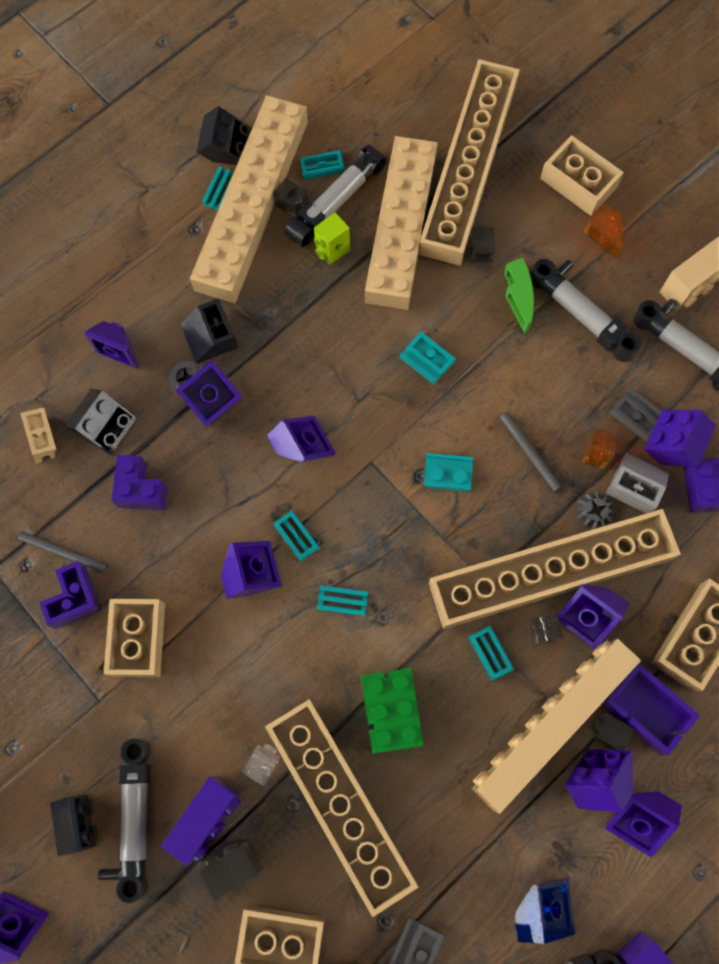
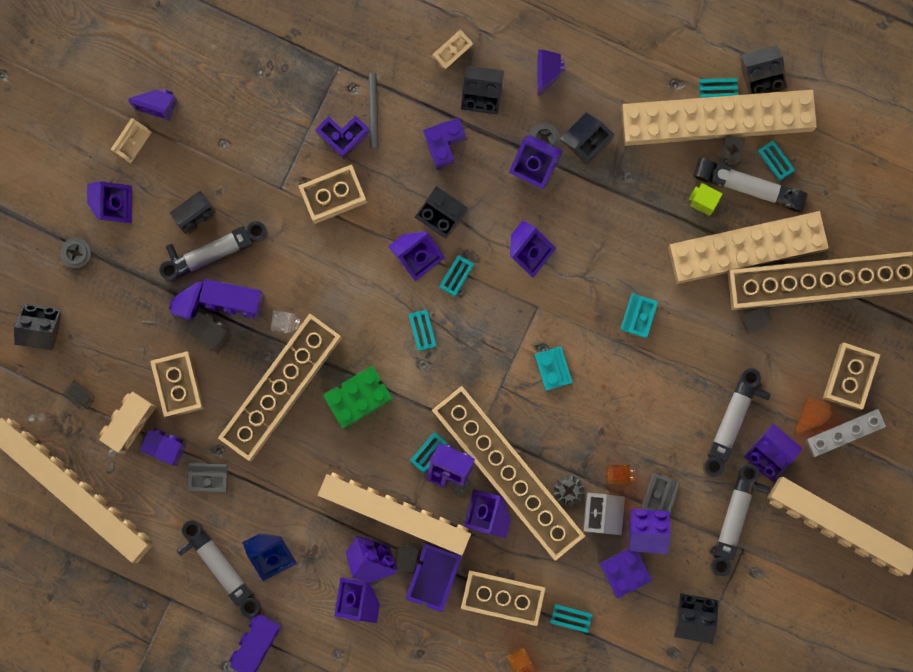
camera: 70 degrees right, 10 degrees up
(181, 882) = (187, 302): none -> dark purple slope
(216, 519) = (441, 212): none -> black slope
(520, 292) = (725, 367): bright green slope -> none
(522, 630) = (449, 465): none -> dark purple brick
(530, 451) = (596, 424): dark grey piece -> none
(632, 281) = (773, 452): none -> dark purple slope
(638, 206) = (845, 433): none -> light grey brick

